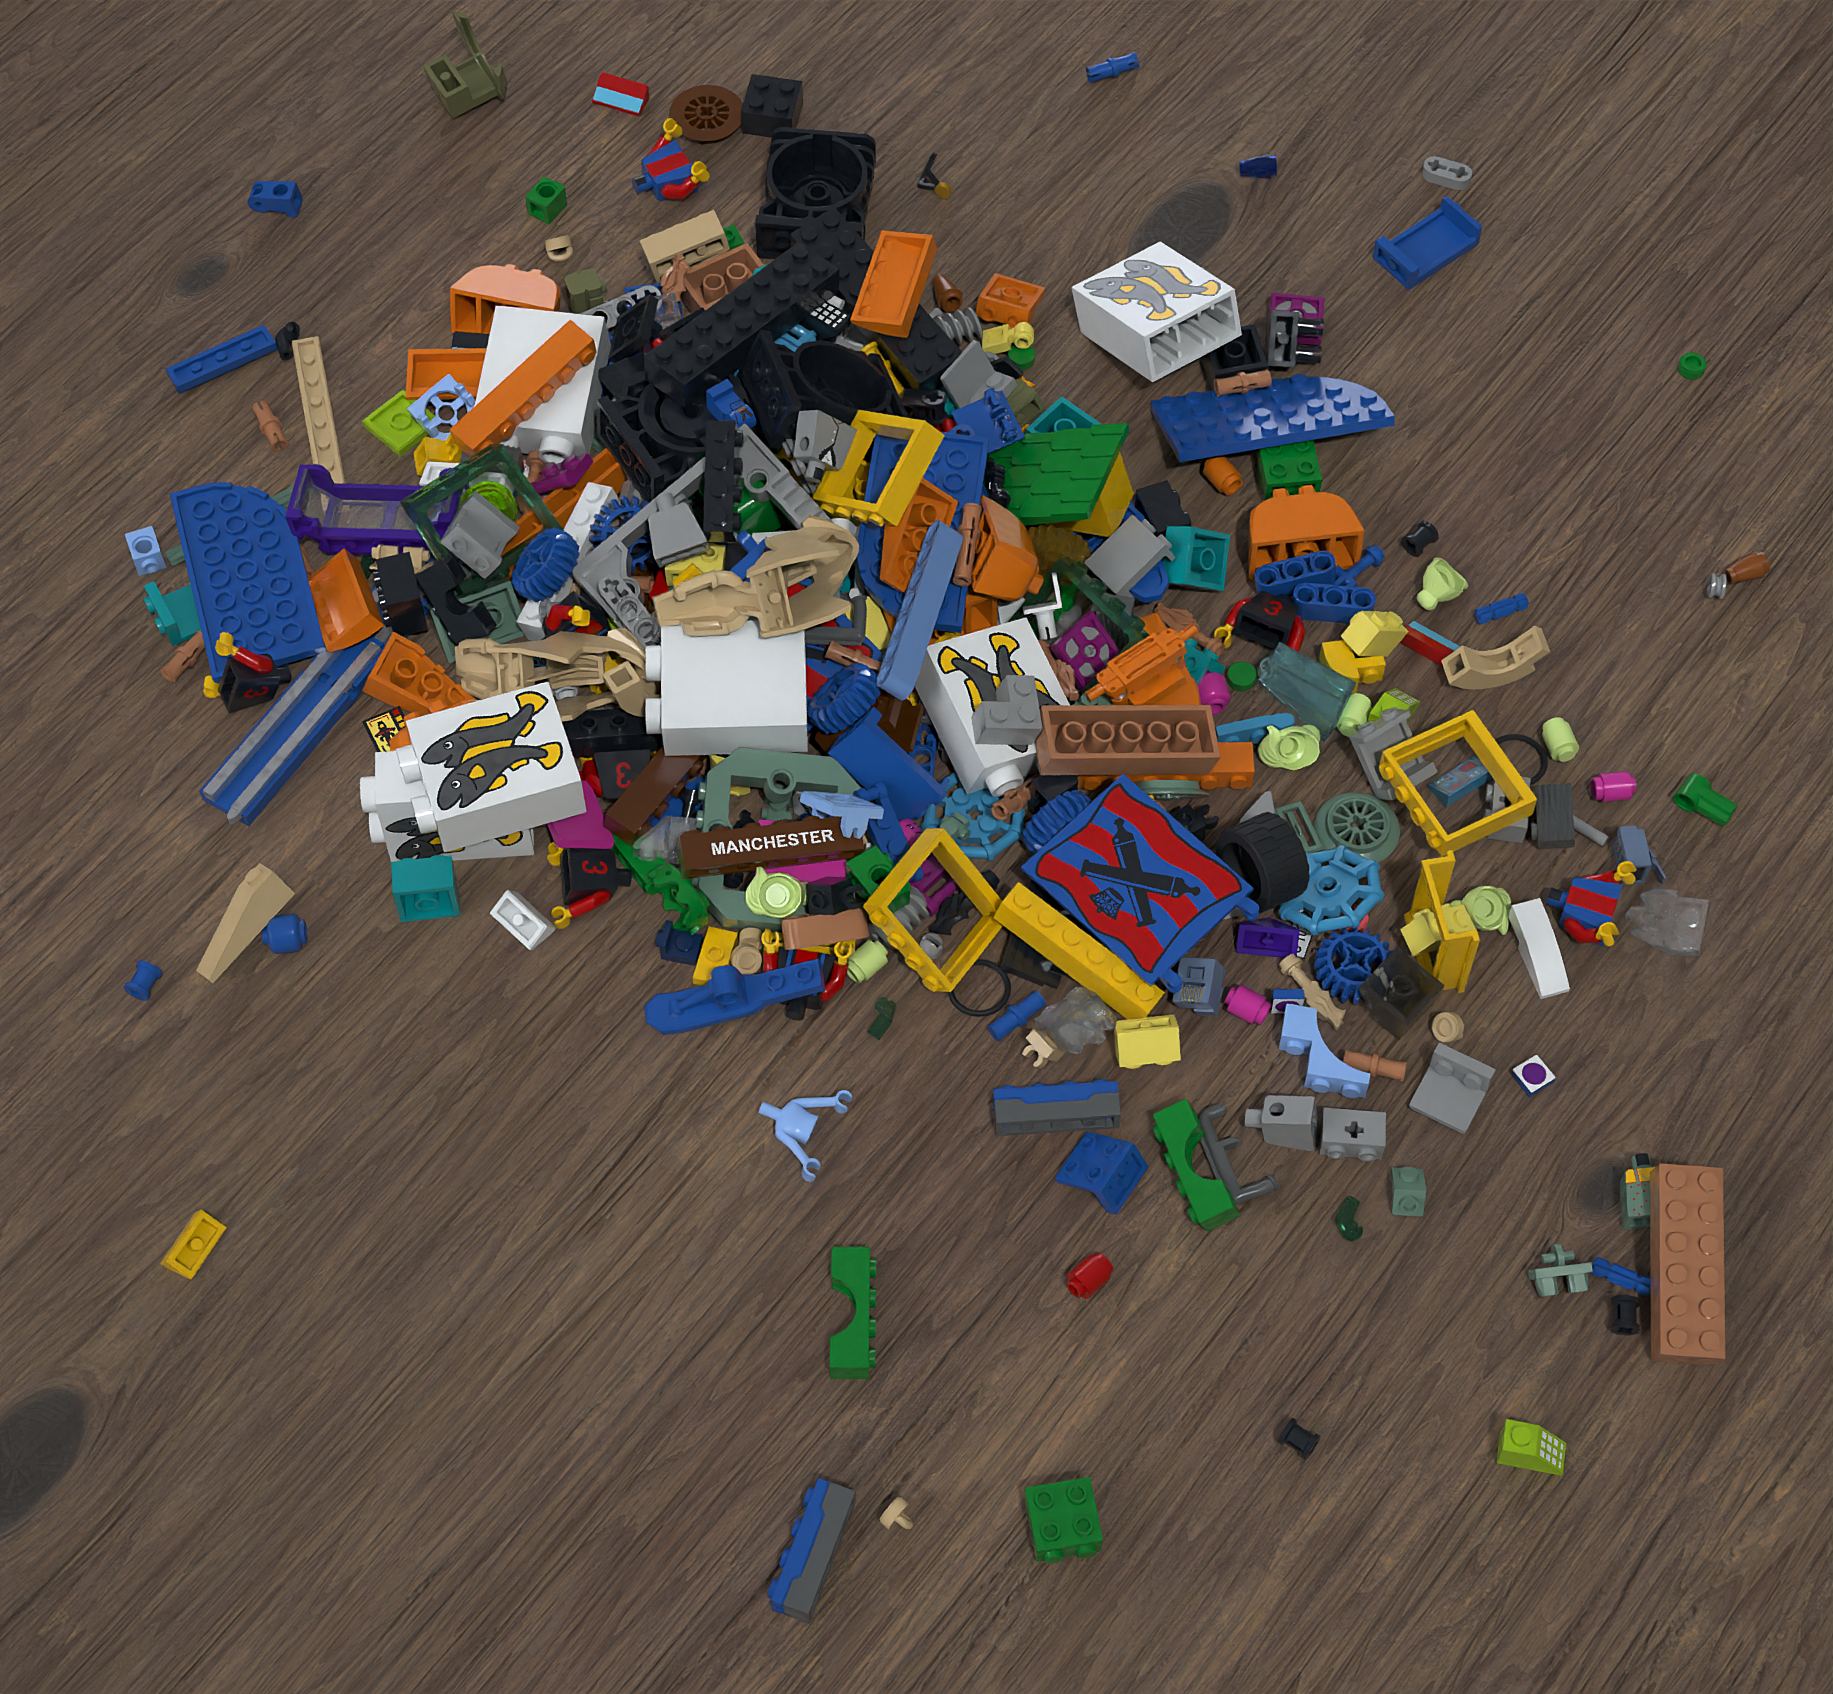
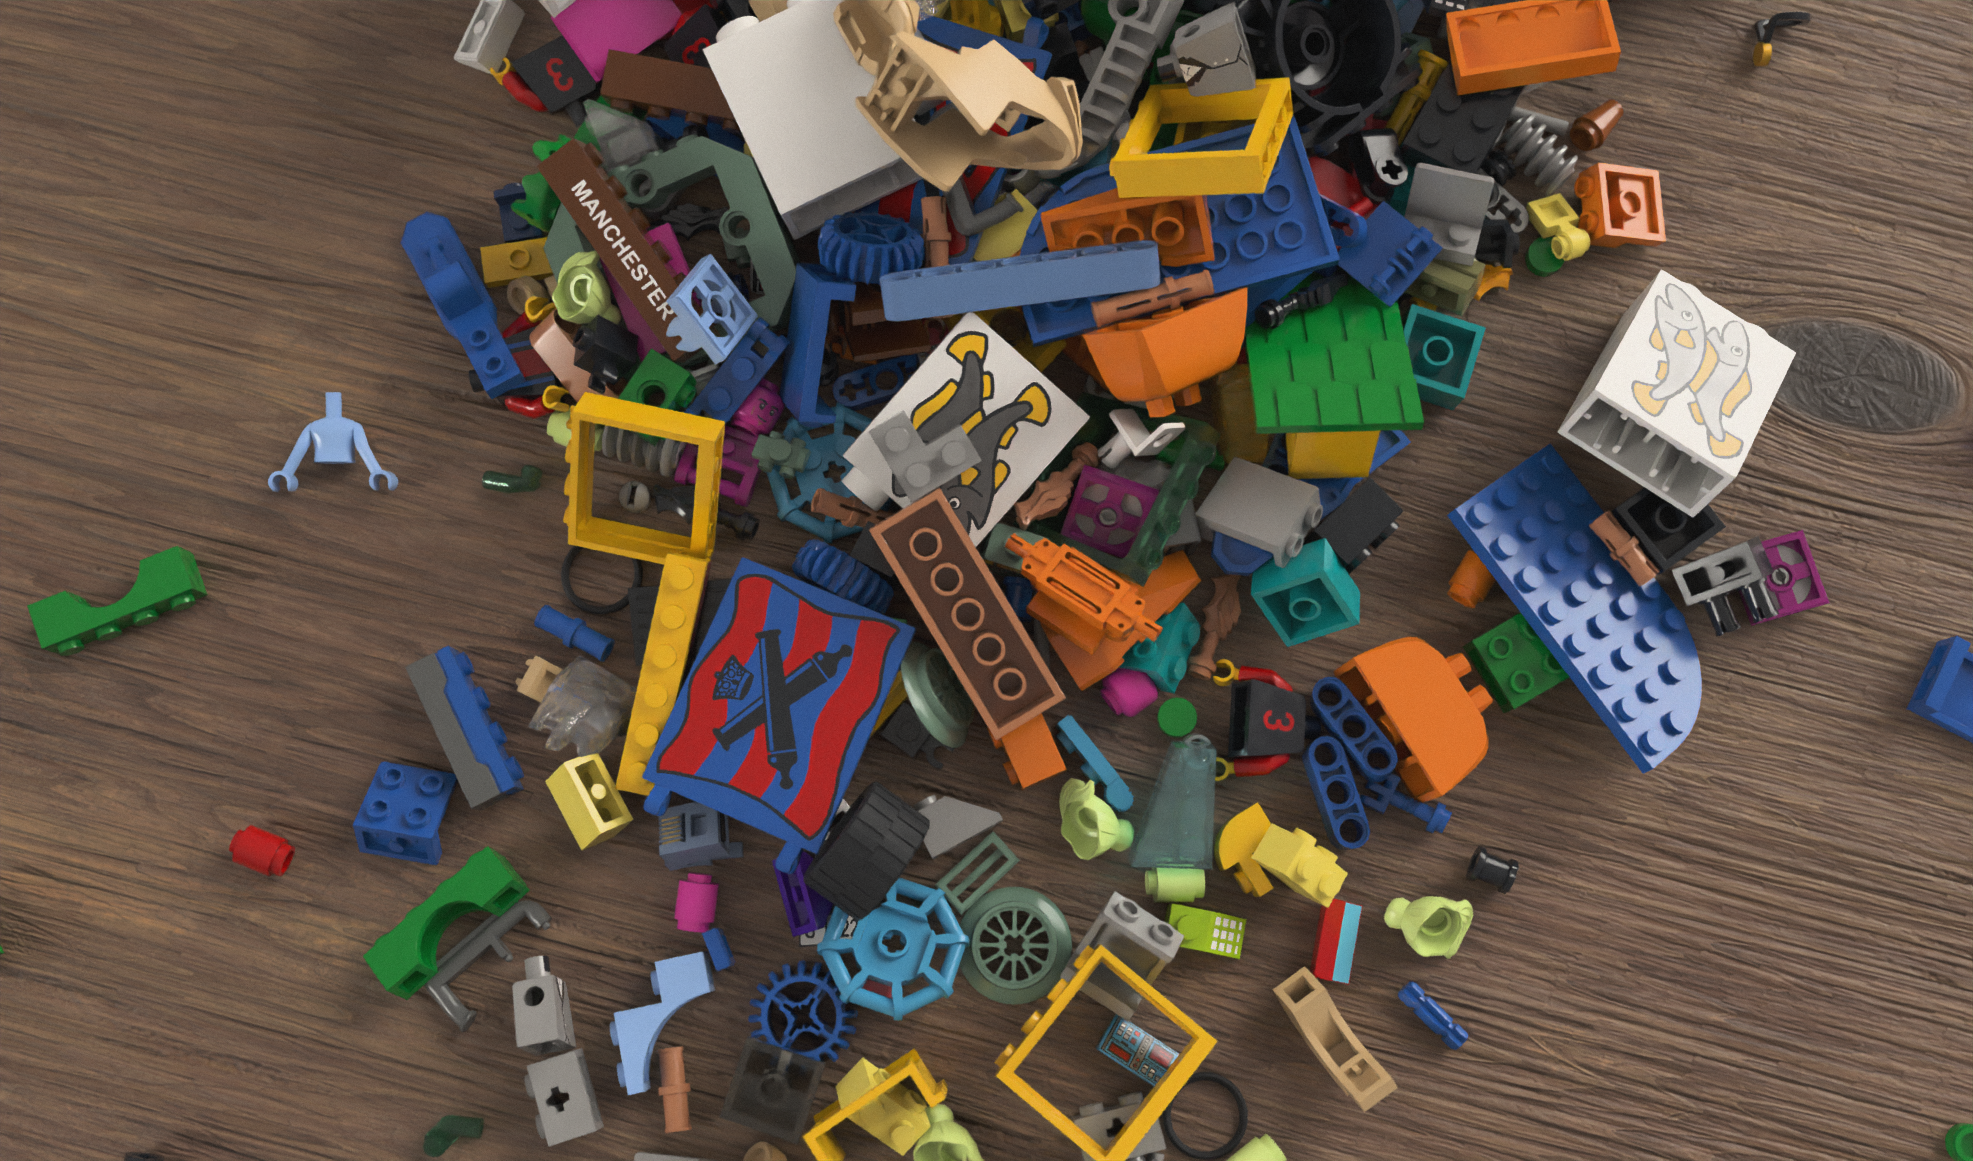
camera: 65 degrees right, 20 degrees up
(1313, 994) = (742, 982): tan piece -> none

